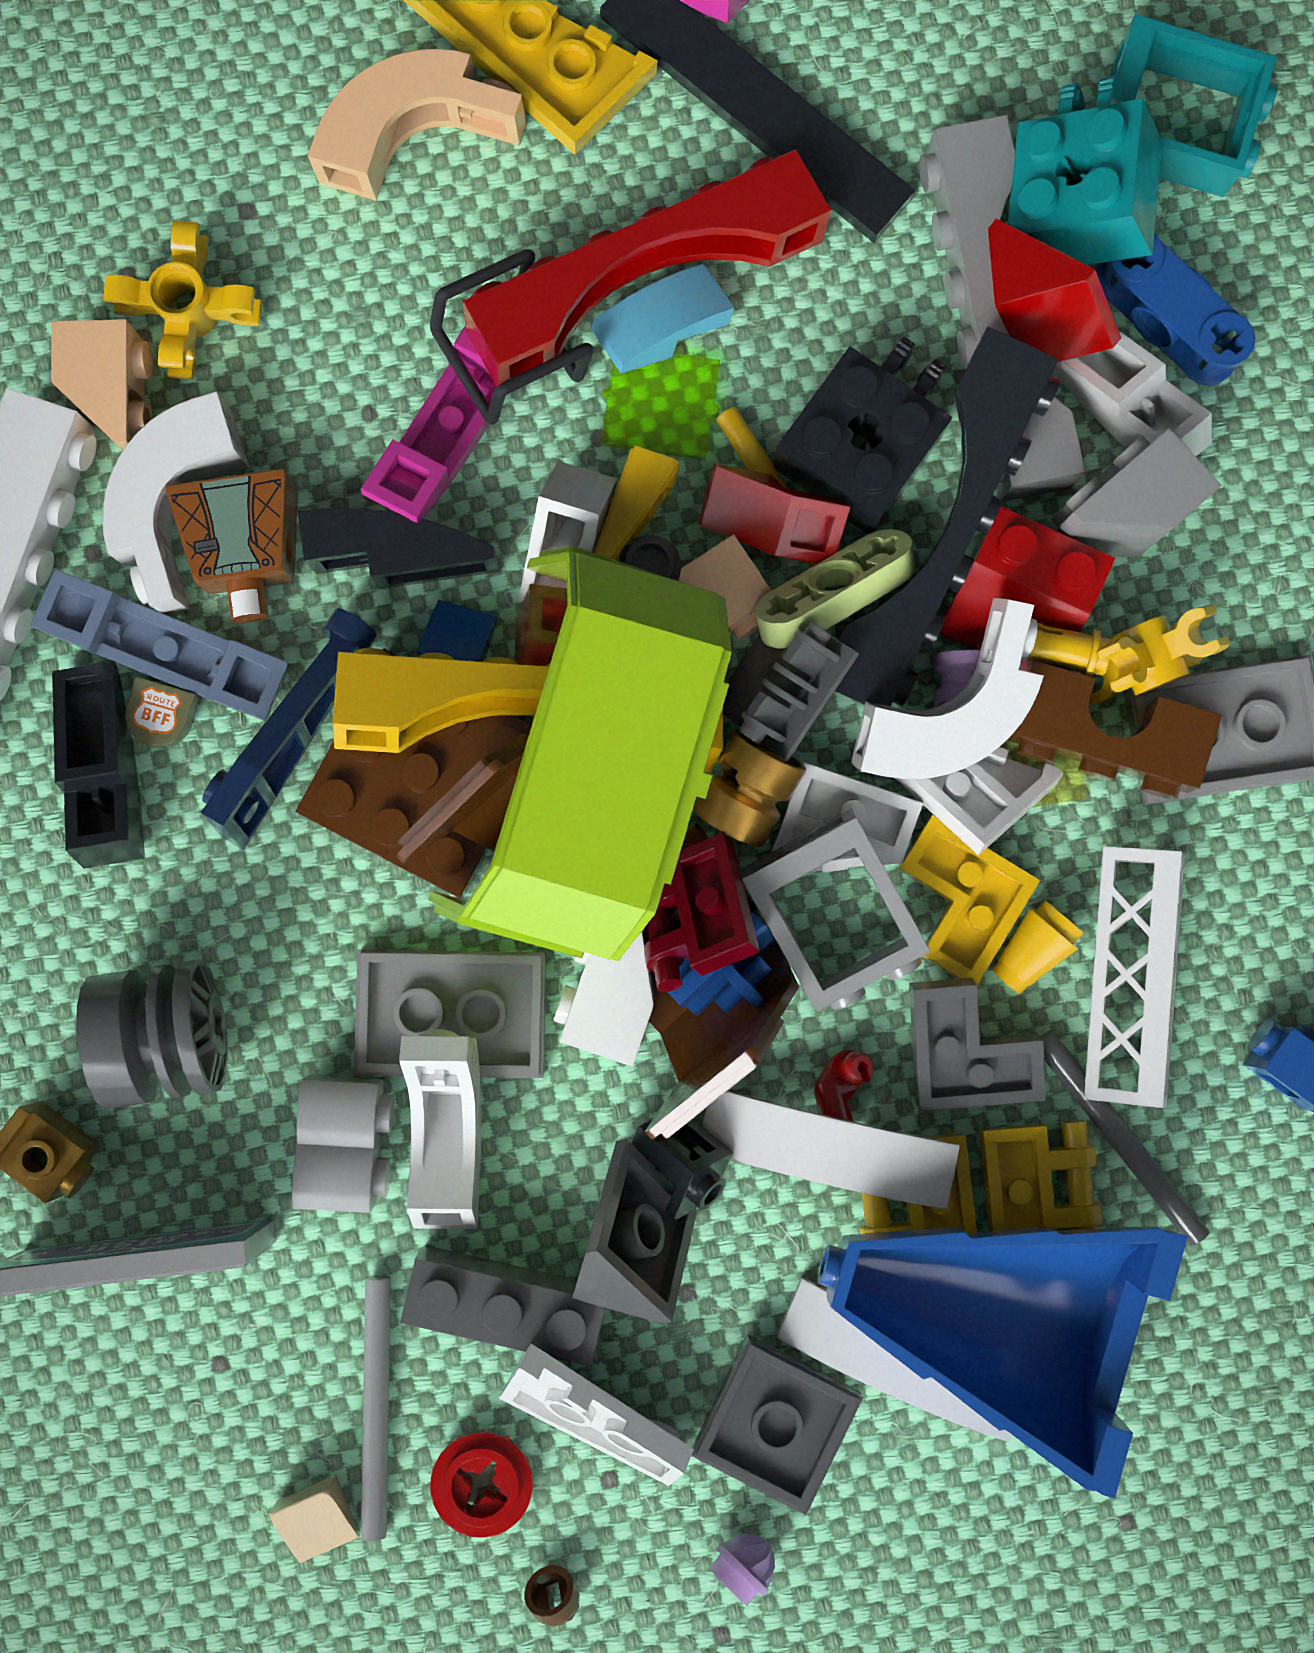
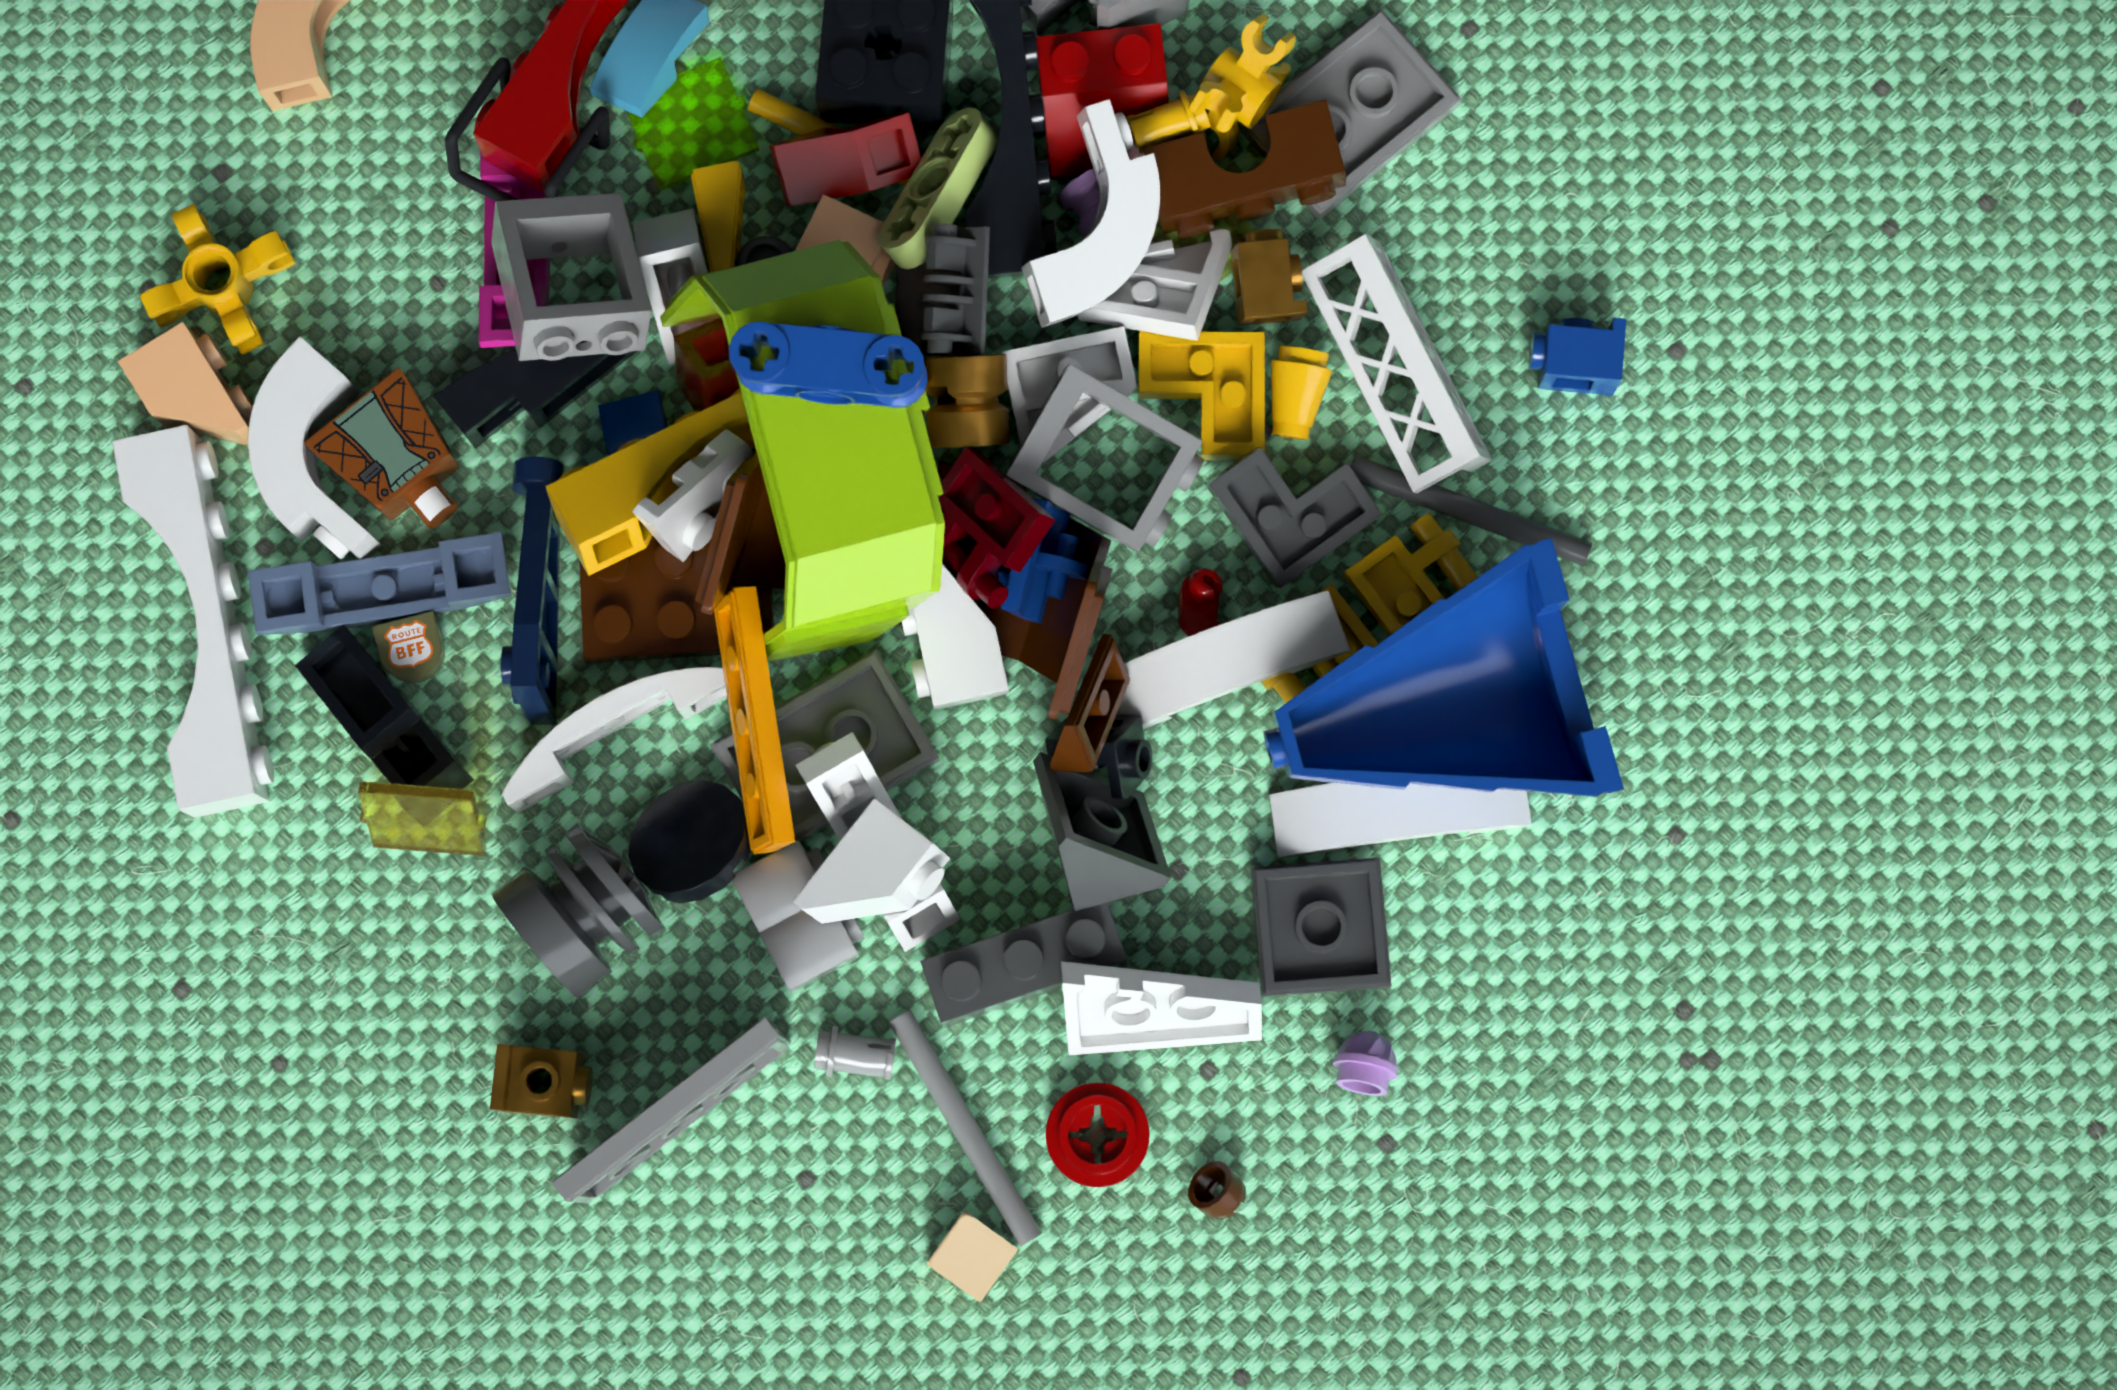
camera: 25 degrees left, 5 degrees down
(74, 870) = (422, 818): none -> clear yellow piece
(212, 885) = (544, 771): none -> white slope
(288, 1027) = (690, 841): none -> black tile
(319, 1289) = (854, 1054): none -> light grey pin
(395, 967) = (754, 721): none -> light orange tile
(423, 1161) = (874, 870): none -> white slope
(467, 739) = (690, 513): none -> white wing
(490, 430) = (564, 229): none -> light grey window
(632, 709) = (828, 364): none -> blue piece
(663, 1159) = (1092, 710): none -> reddish brown slope
(1069, 834) = (1266, 279): none -> pearl gold brick

